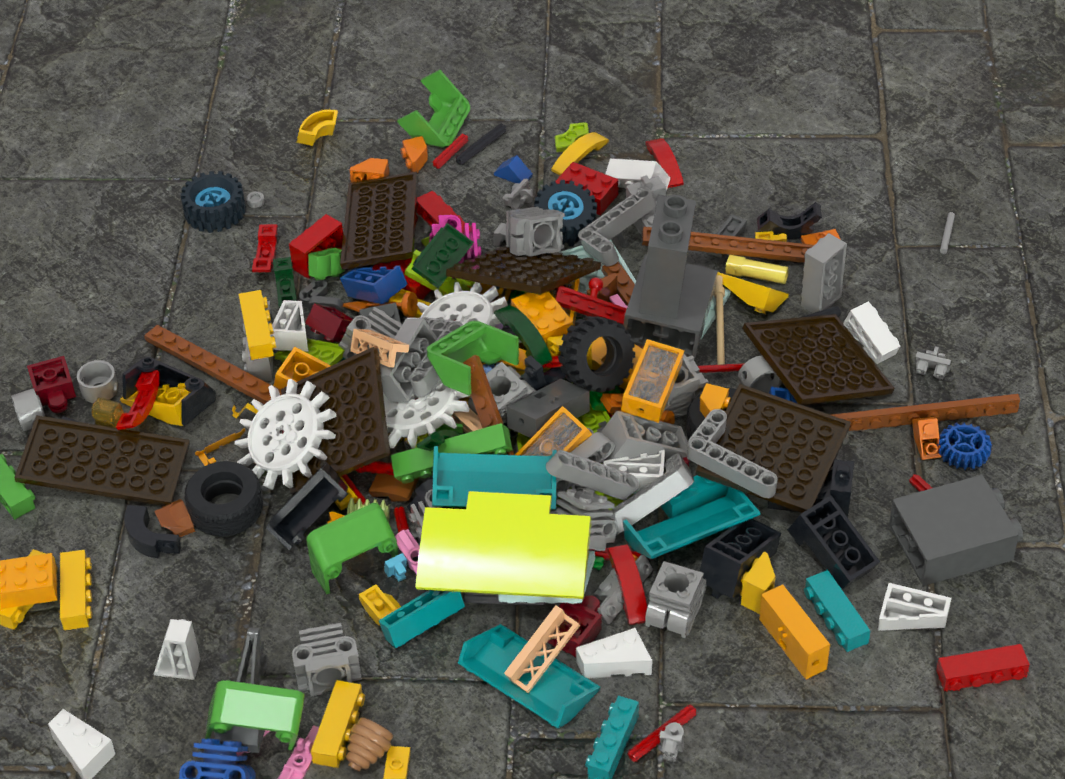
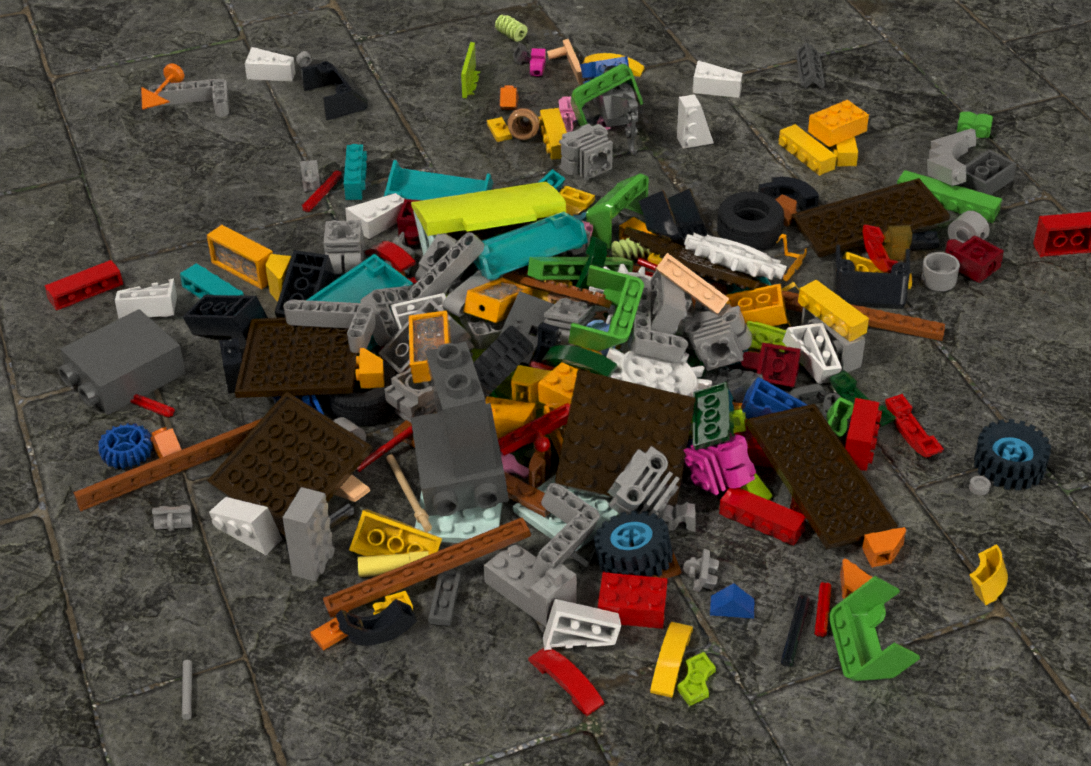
camera: 155 degrees right, 5 degrees down
(535, 645) = (433, 189): light nougat fence -> none

